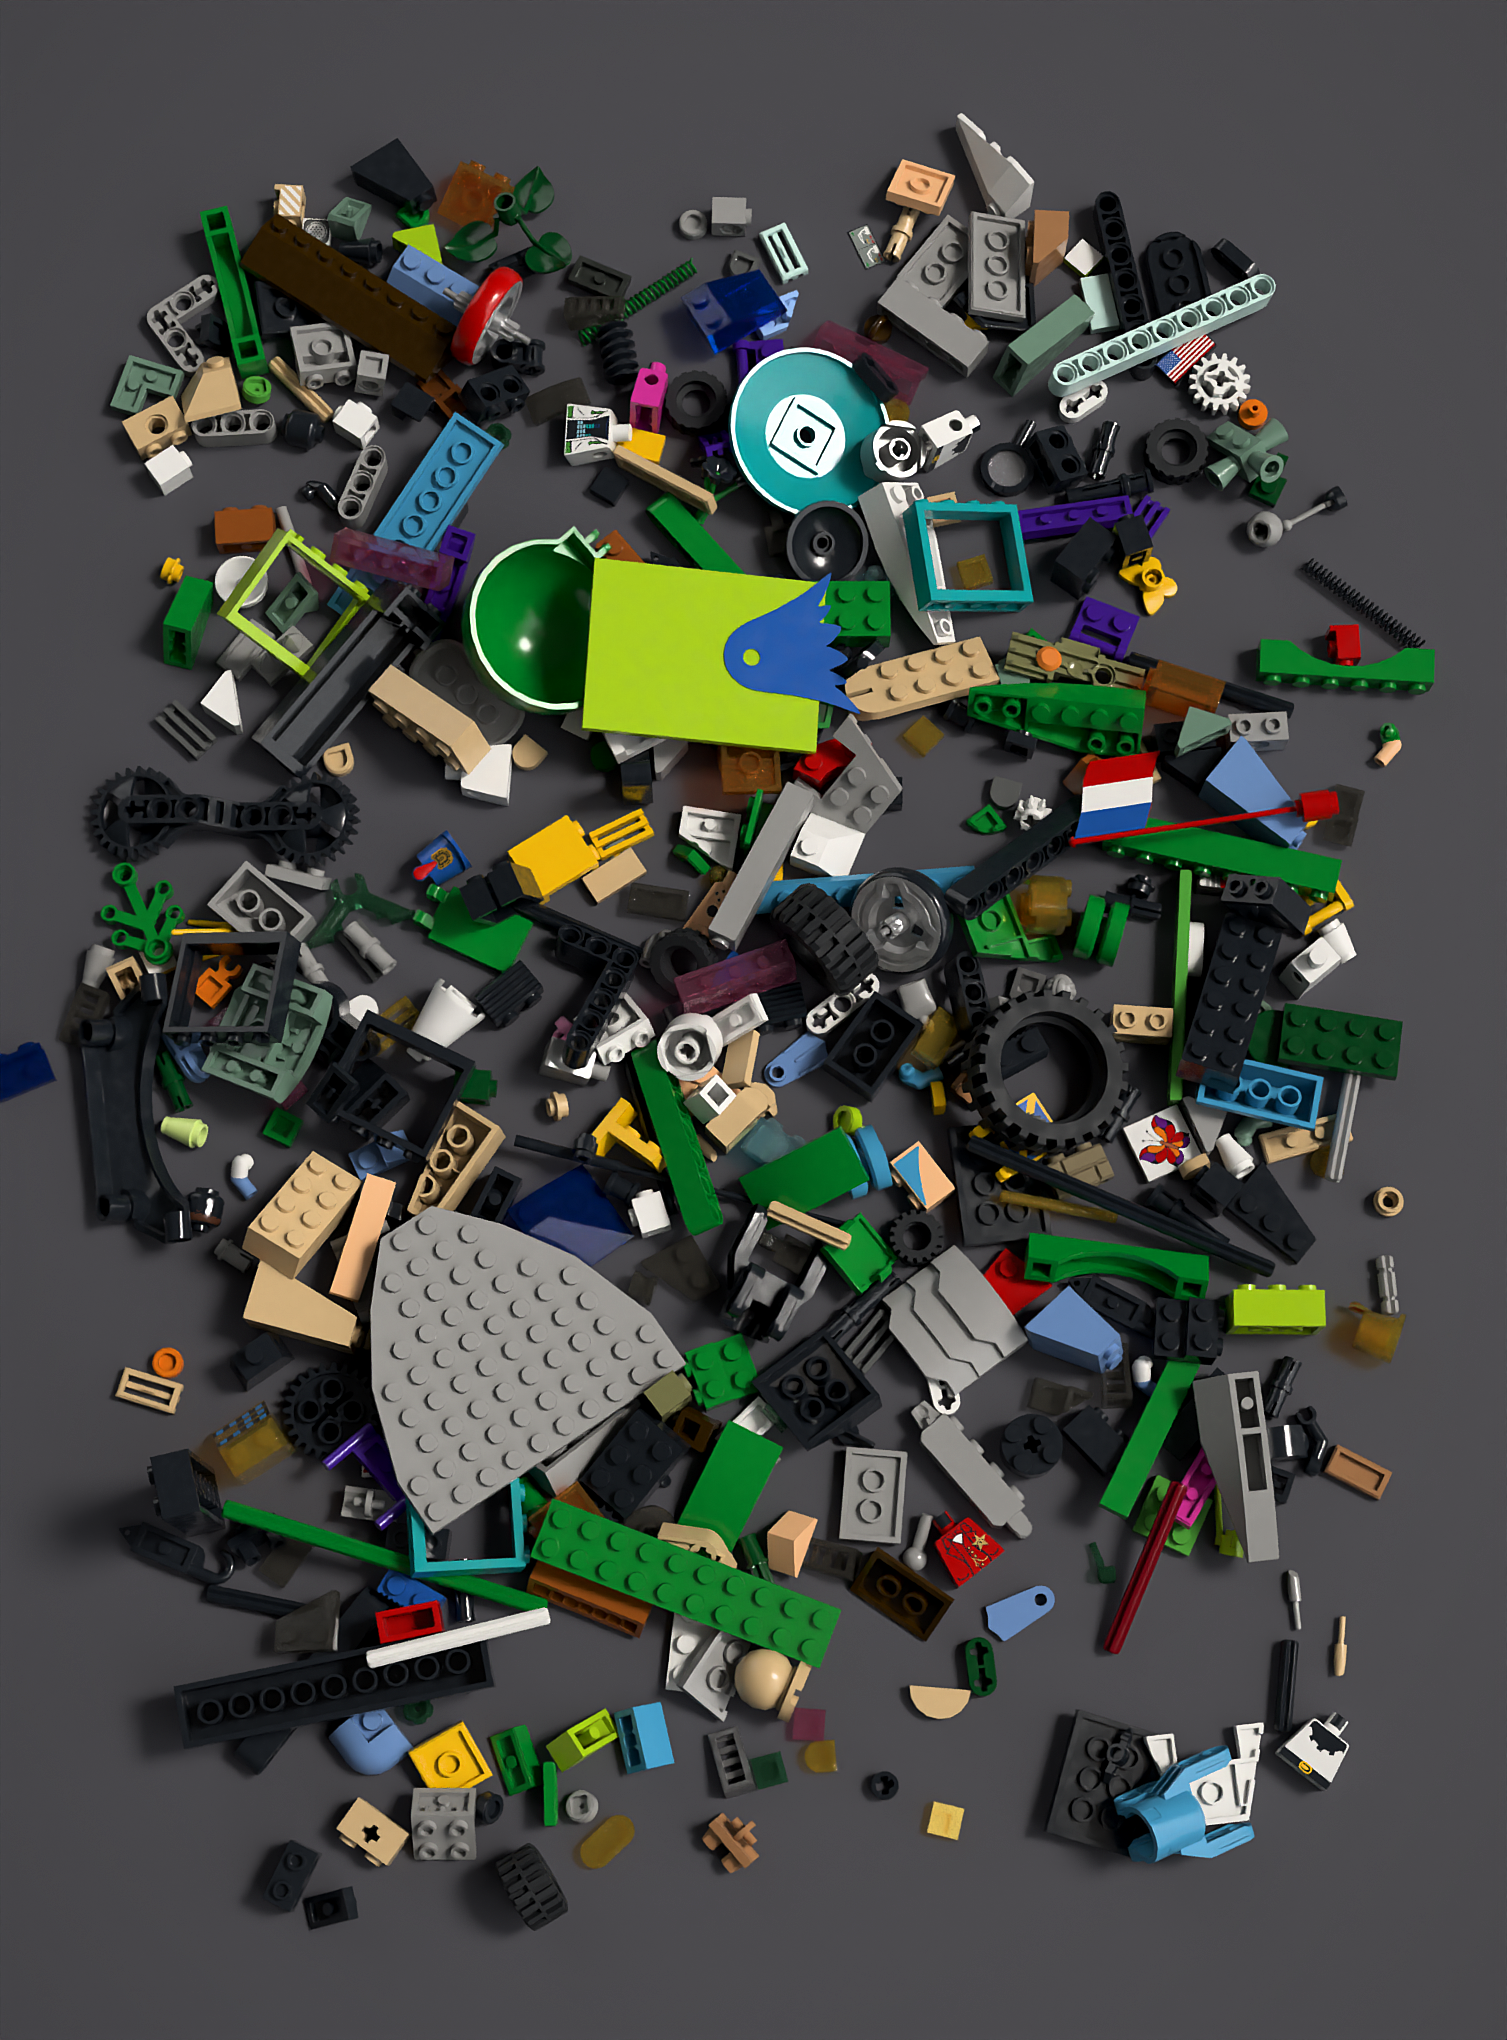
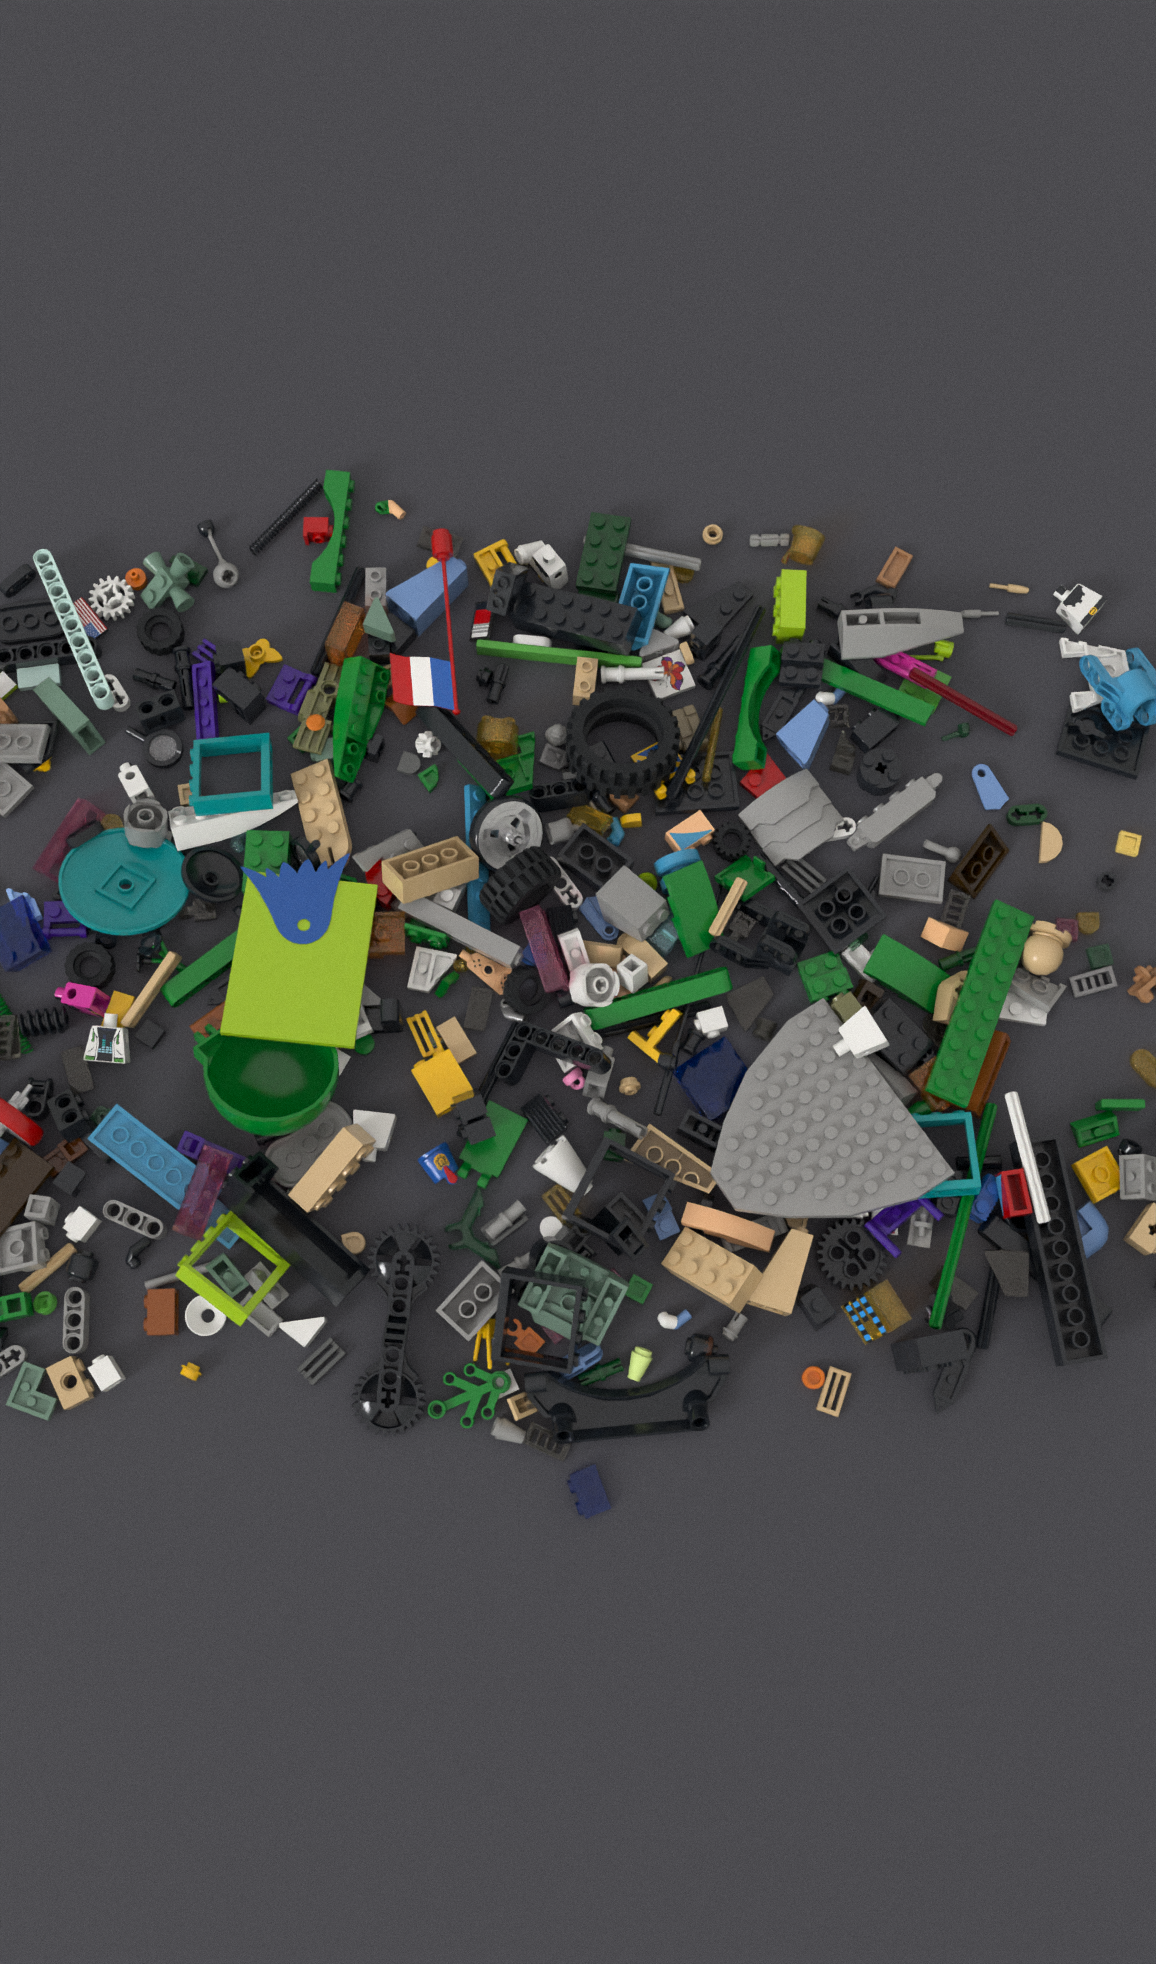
camera: 90 degrees left, 0 degrees up
(187, 622) = (235, 1358): green slope -> none
(211, 390) = (45, 1337): tan slope -> none
(287, 871) = (443, 1281): light grey plate -> none
(514, 1078) = (609, 1114): none -> light grey pin
(528, 754) = (358, 1100): tan tile -> none
(581, 1806) = (1127, 1084): light grey tile -> none
(583, 1740) = (1083, 1081): lime slope -> none
(625, 1405) = (860, 1035): none -> white torso
(644, 1737) = (1079, 1040): dark azure brick -> none
(715, 445) = (126, 955): dark purple tile -> none
(807, 1094) = (632, 905): none -> light grey slope
(840, 819) = (430, 869): none -> tan brick
(878, 329) = (42, 833): dark brown tile -> none
(923, 736) = (363, 817): clear yellow tile -> none
(933, 326) = (47, 791): light grey brick -> none
(964, 1548) = (949, 820): red torso -> none
(975, 572) = (241, 775): clear yellow tile -> none
(1100, 930) = (518, 700): green wheel -> none
(1156, 1076) = (620, 674): none -> white pin
(1224, 854) = (471, 606): green brick -> none

